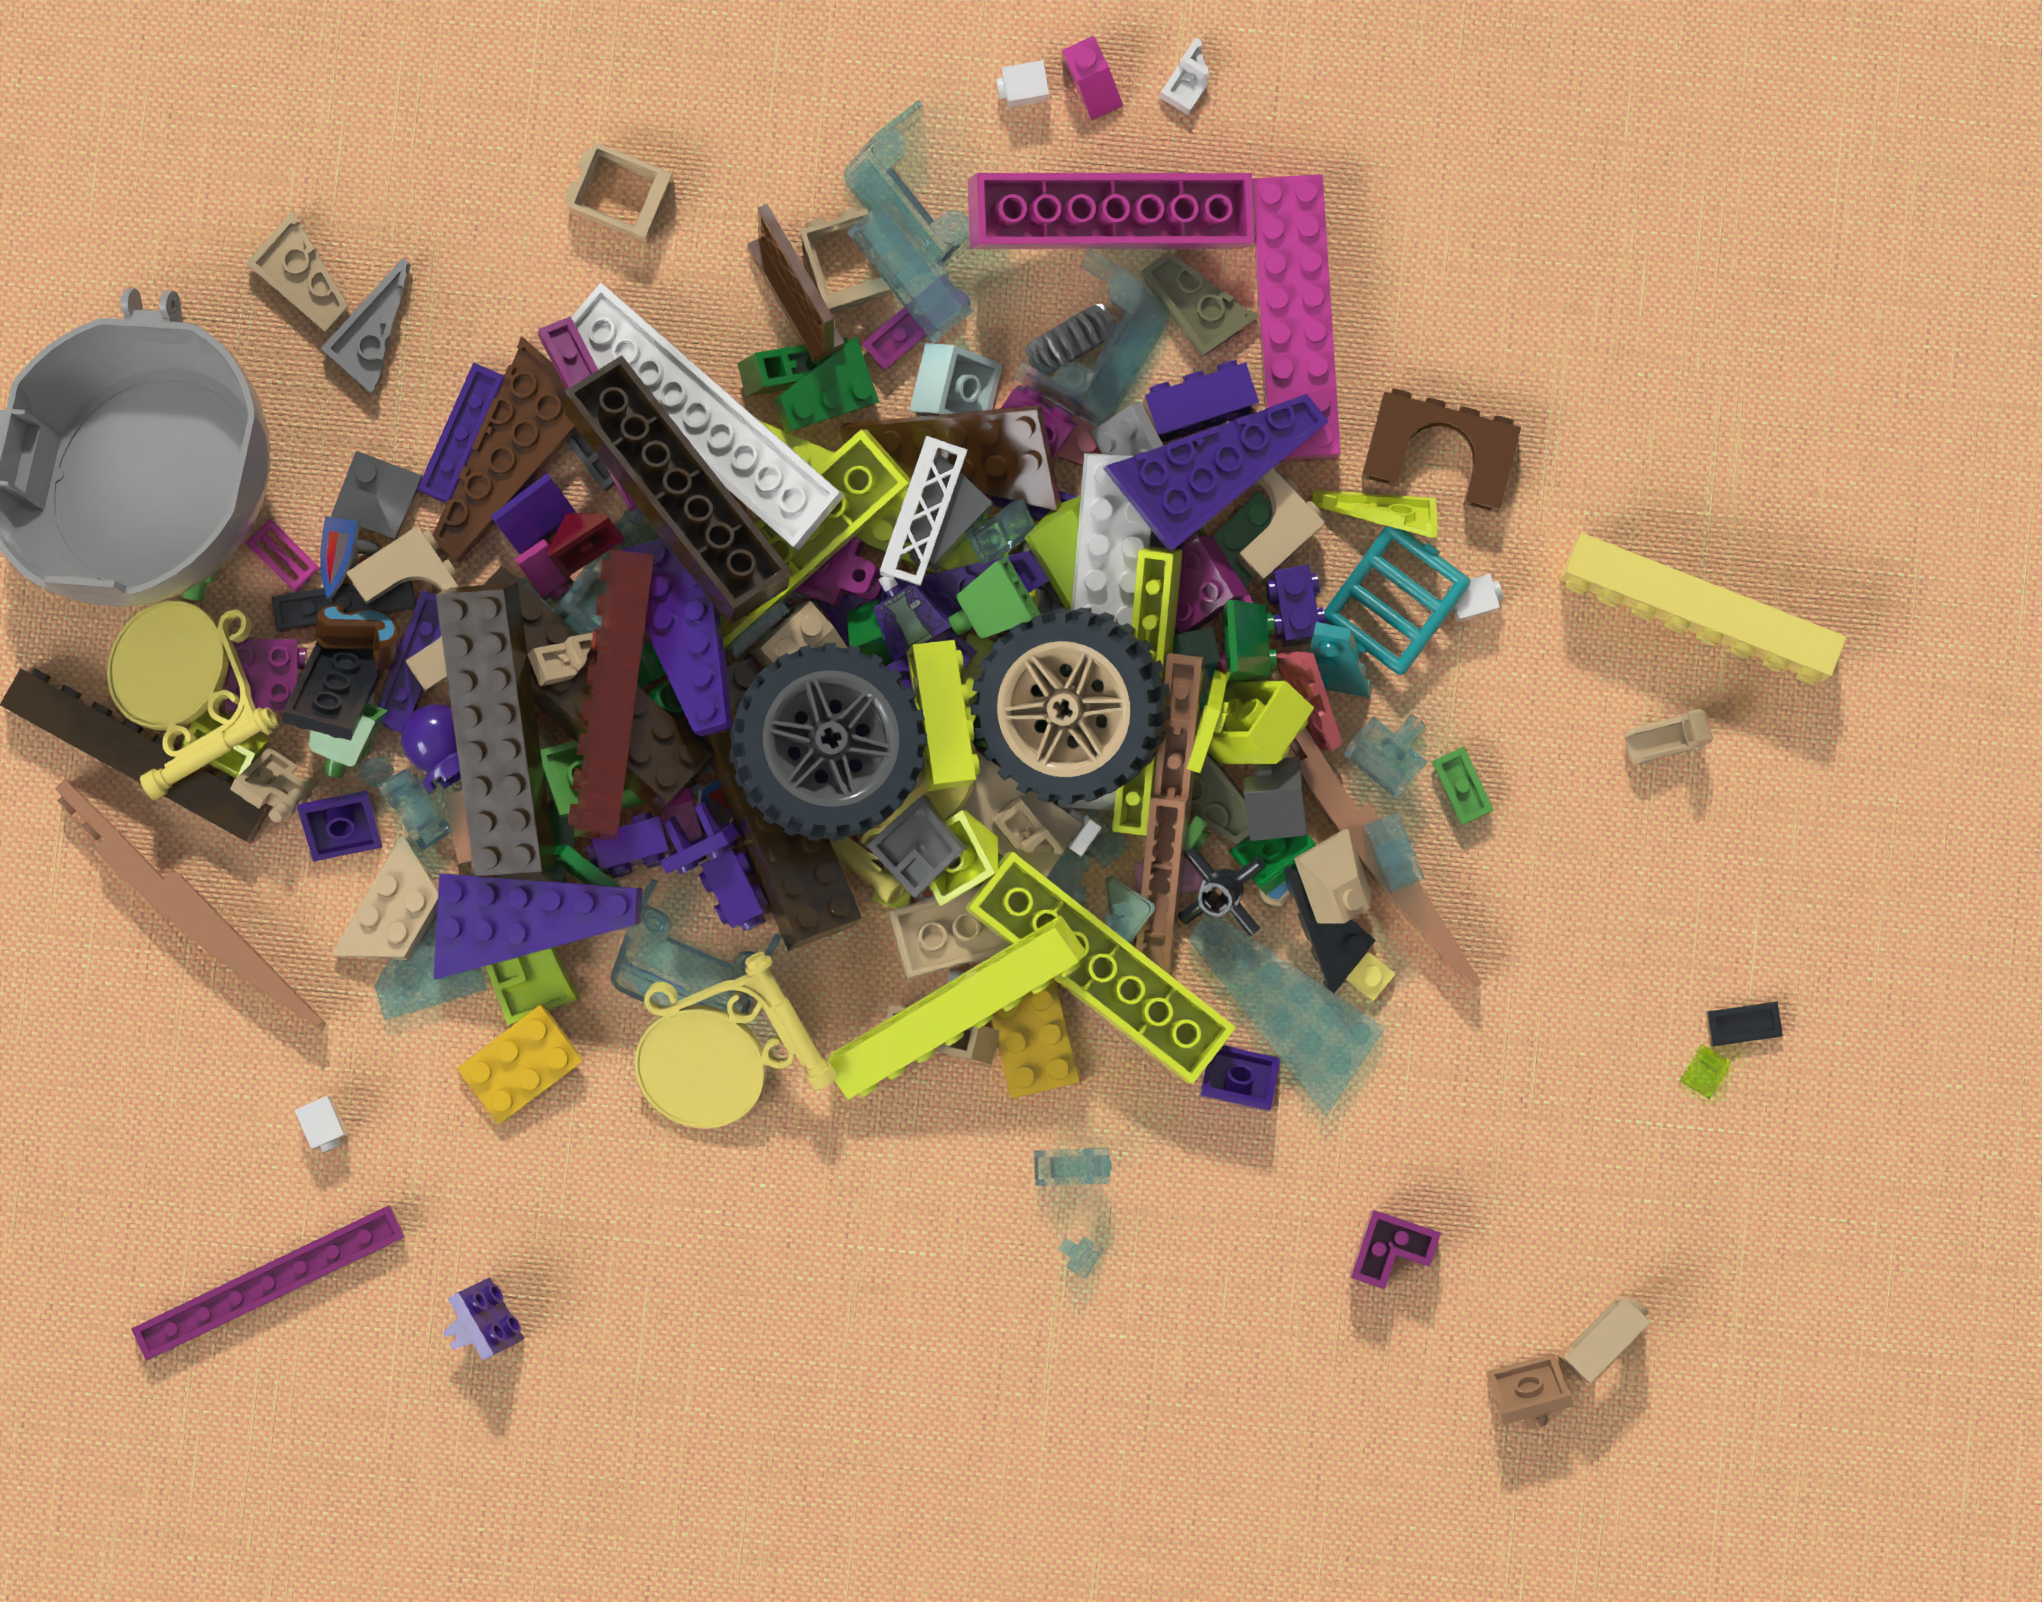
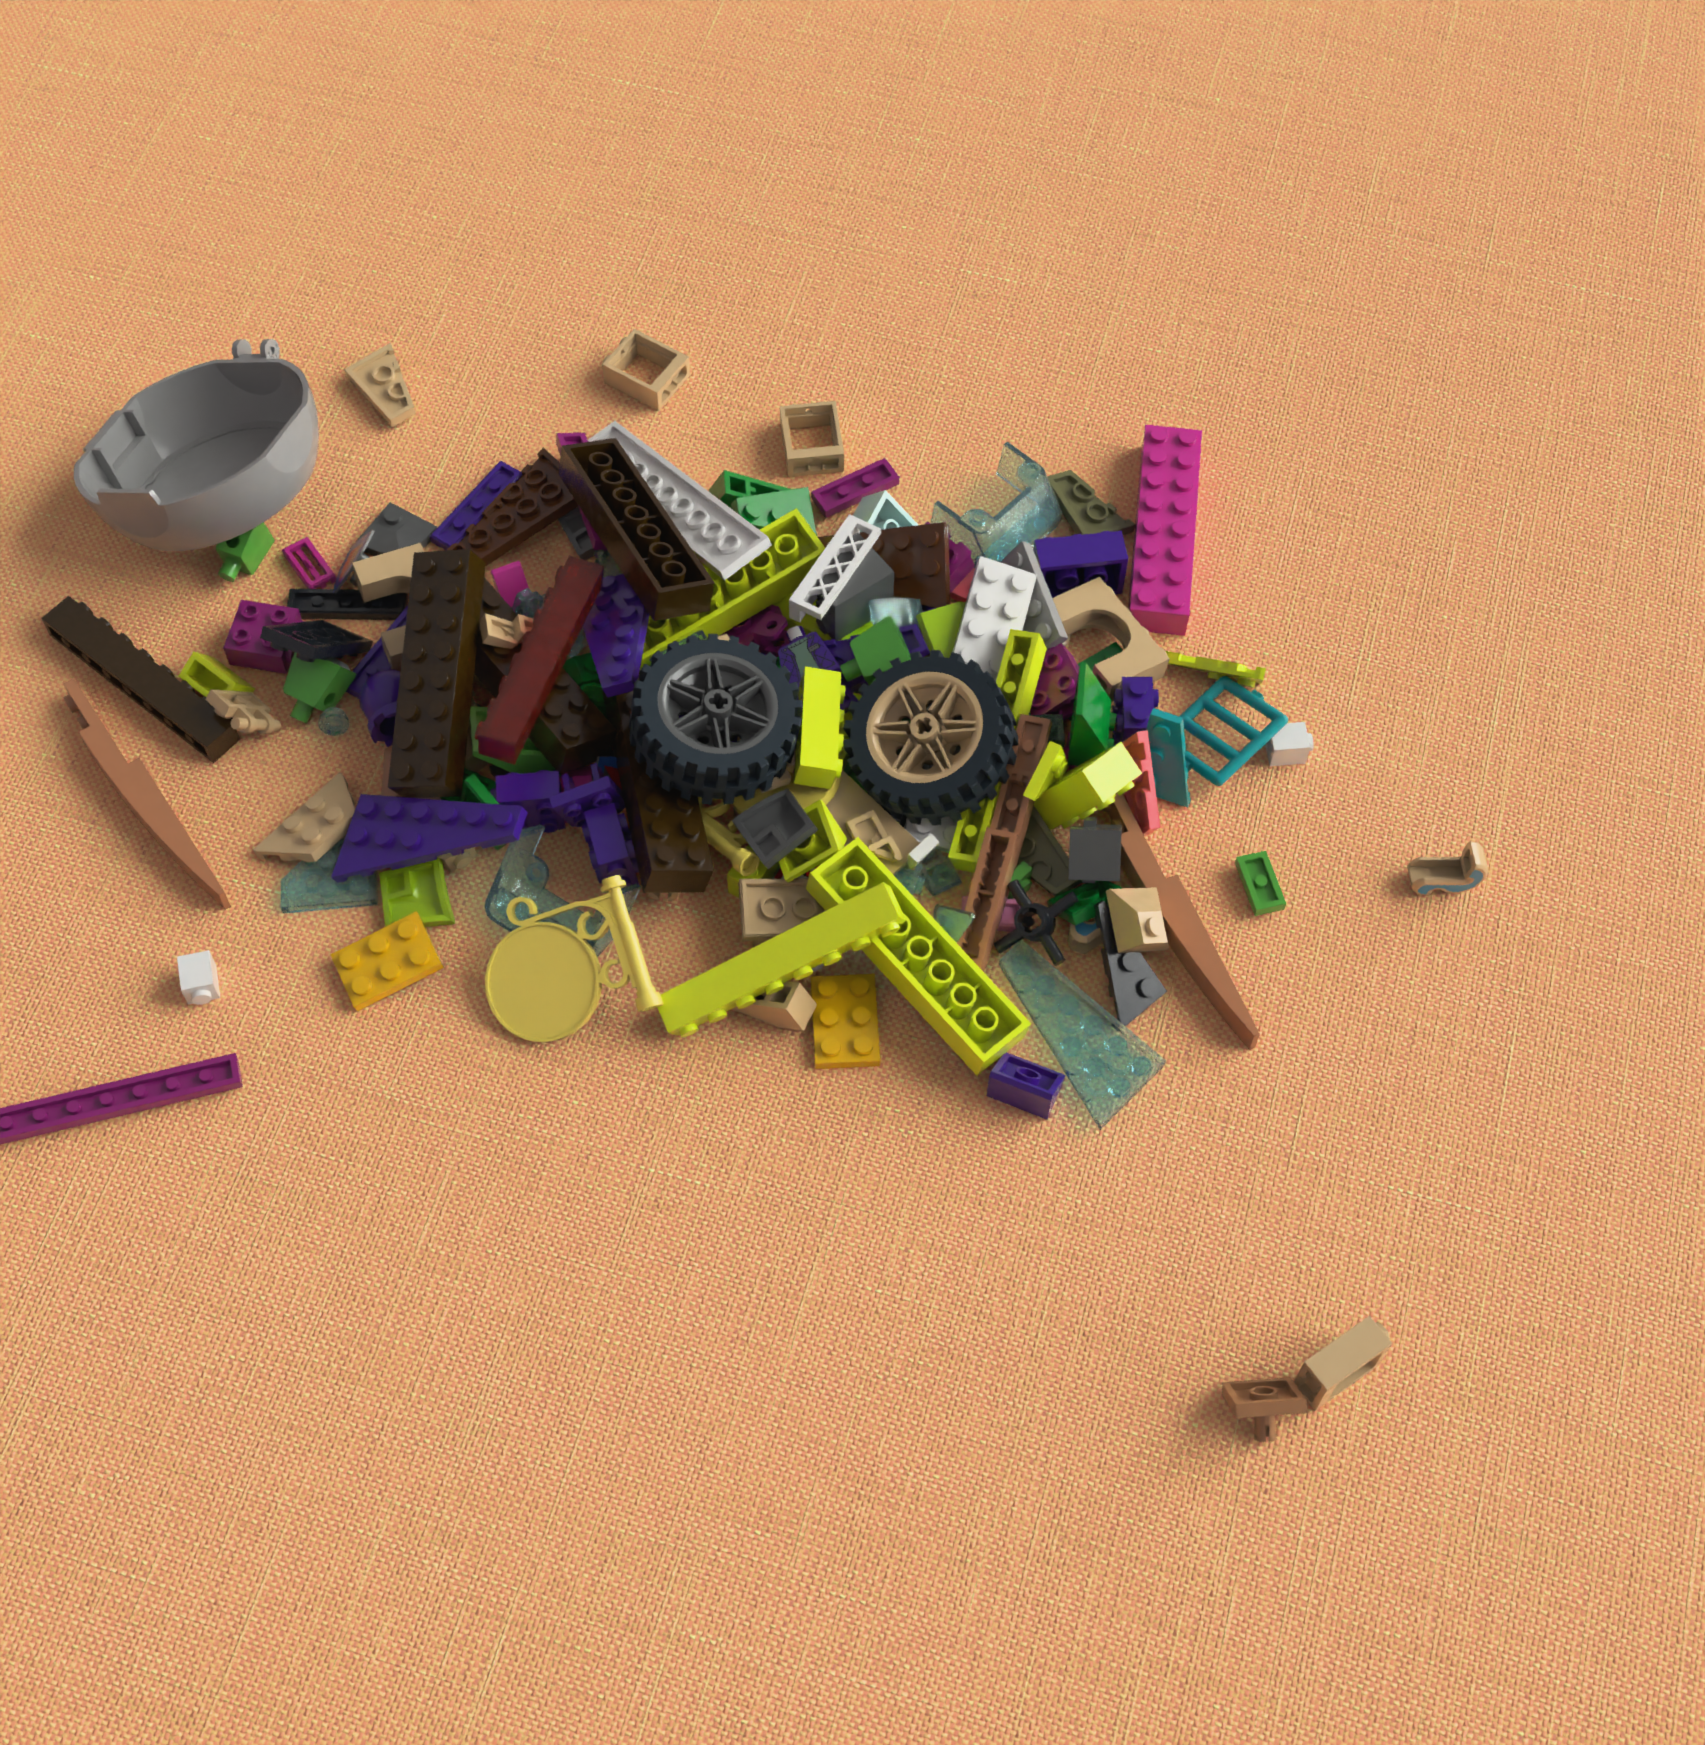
camera: 10 degrees right, 25 degrees down
(170, 672) = (187, 618): light yellow piece -> none
(340, 825) = (291, 751): dark purple slope -> none
(359, 630) = (350, 617): reddish brown animal -> none
(365, 336) = (422, 430): light grey wing -> none
(416, 808) = (356, 746): clear light blue brick -> none
(483, 1320) = (287, 1158): dark purple plate -> none
(533, 514) = (522, 544): dark purple slope -> none
(582, 540) = (541, 572): dark red slope -> none
(794, 288) = (767, 435): reddish brown fence -> none
(874, 180) = (864, 417): clear light blue windscreen -> none
(910, 270) = (860, 439): clear light blue brick -> none
(1023, 84) = (975, 350): white brick -> none
(1071, 339) = (984, 492): dark grey gear -> none
(1072, 1166) = (860, 1128): clear light blue brick -> none
(1082, 1255) = (853, 1206): clear light blue tile -> none
(1092, 78) = (1028, 353): dark pink slope -> none
(1110, 211) = (1030, 420): dark pink brick -> none
(1187, 81) = (1104, 371): white slope -> none
(1200, 474) = (1078, 589): dark purple wing -> none
(1370, 976) = (1157, 1021): light yellow plate -> none
(1384, 1240) = (1150, 1239): magenta brick -> none
(1387, 754) = (1198, 845): clear light blue brick -> none
(1393, 853) = (1194, 908): clear light blue brick -> none
(1490, 442) = (1247, 609): reddish brown arch -> none
(1702, 609) = (1487, 775): light yellow brick -> none
(1705, 1071) = (1456, 1153): clear neon green slope -> none
(1744, 1024) = (1497, 1118): black tile -> none

